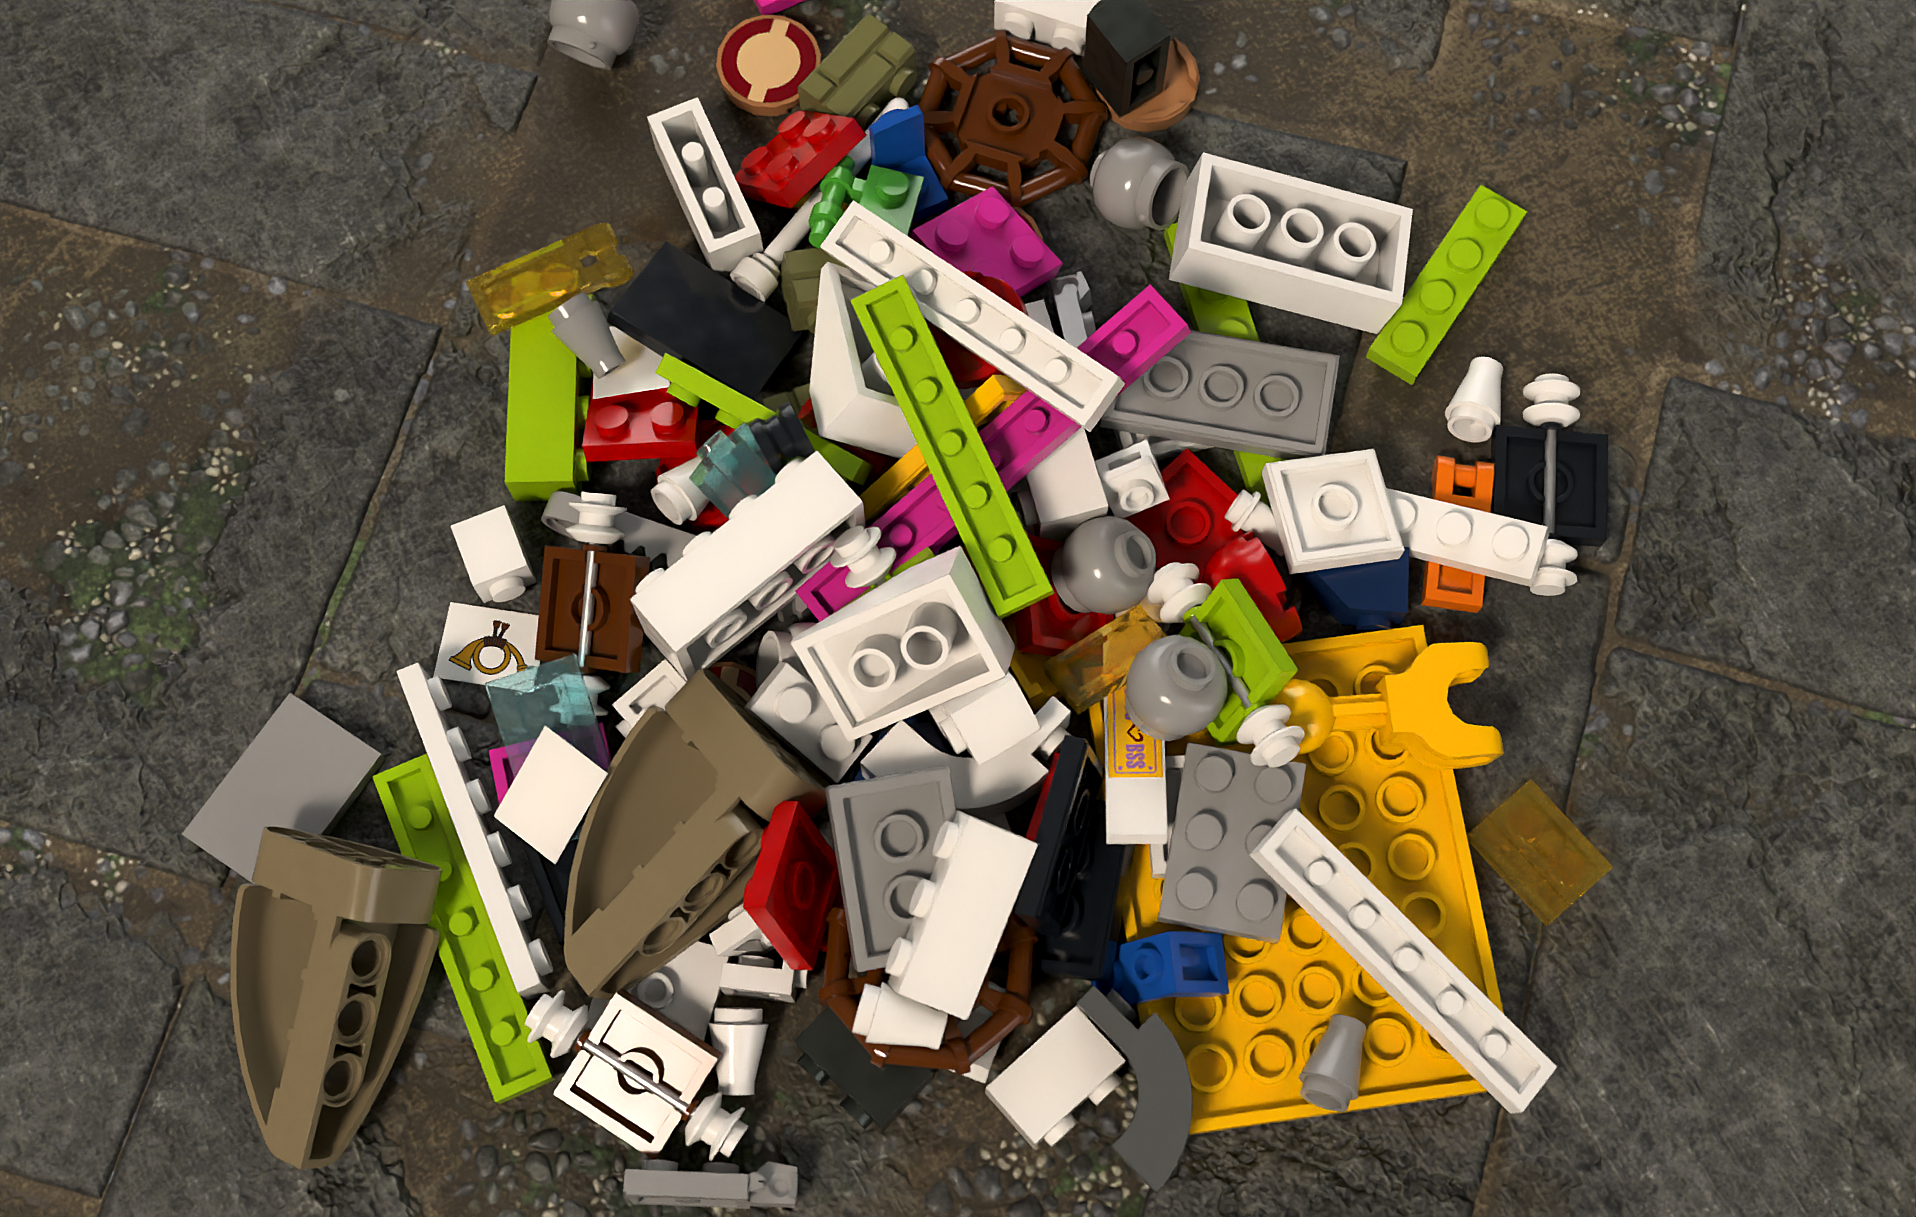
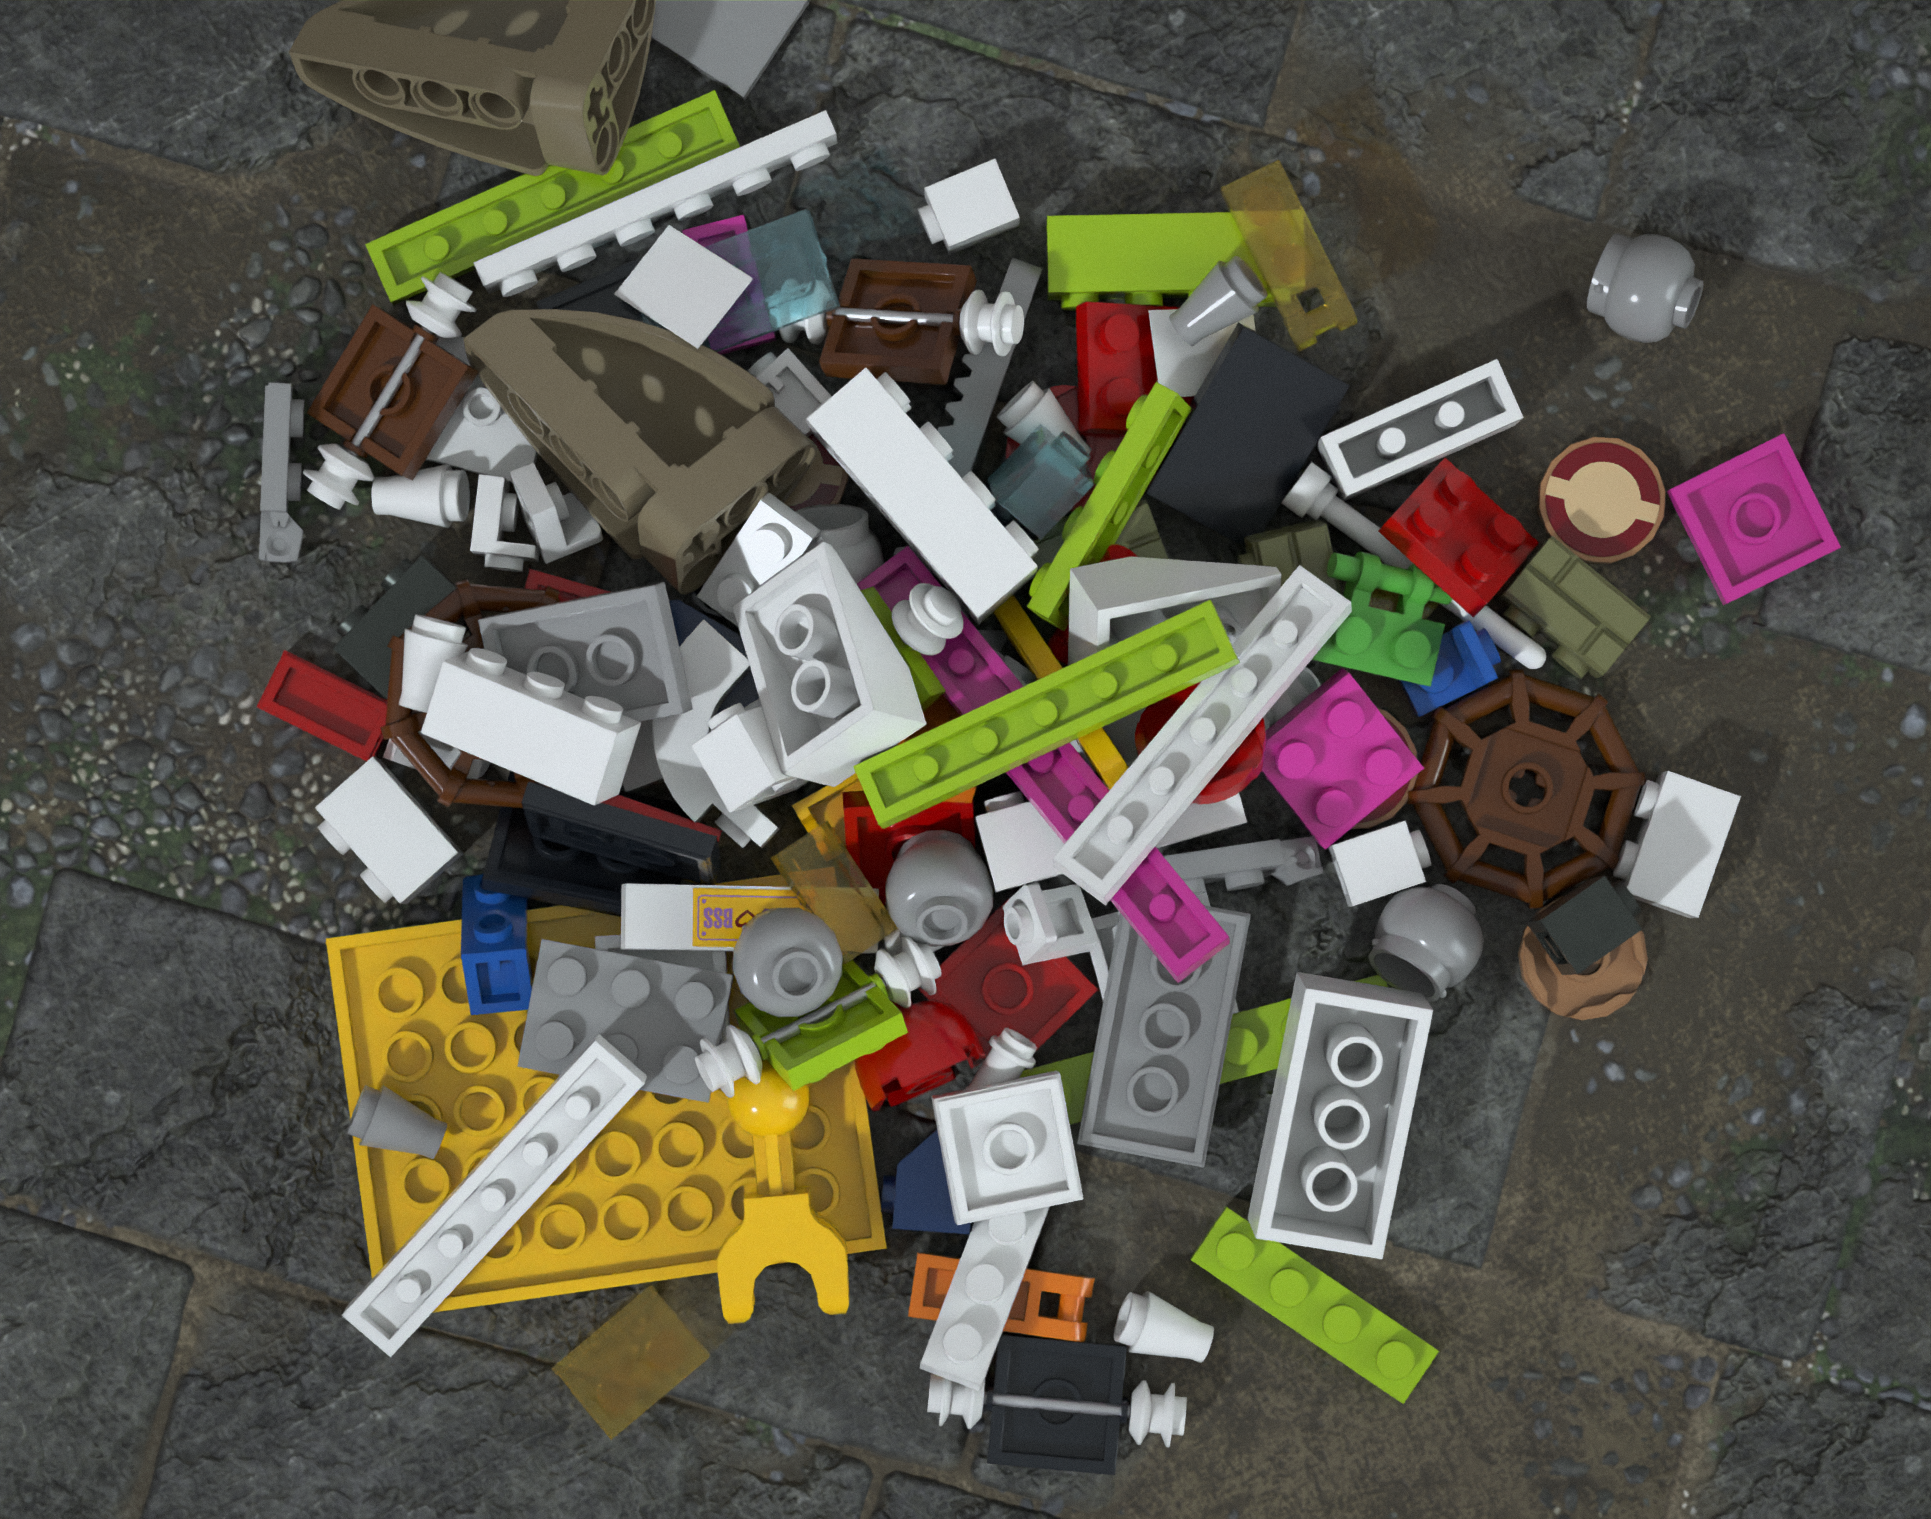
camera: 90 degrees right, 15 degrees up
(485, 644) = (872, 206): white sticker -> none
(781, 437) = (1064, 526): black wheel -> none
(793, 885) = (572, 549): red plate -> none
(936, 1141) = (325, 706): none -> red tile
(1073, 226) = (1380, 862): none -> white brick
(1164, 1106) = (376, 939): dark grey arch -> none

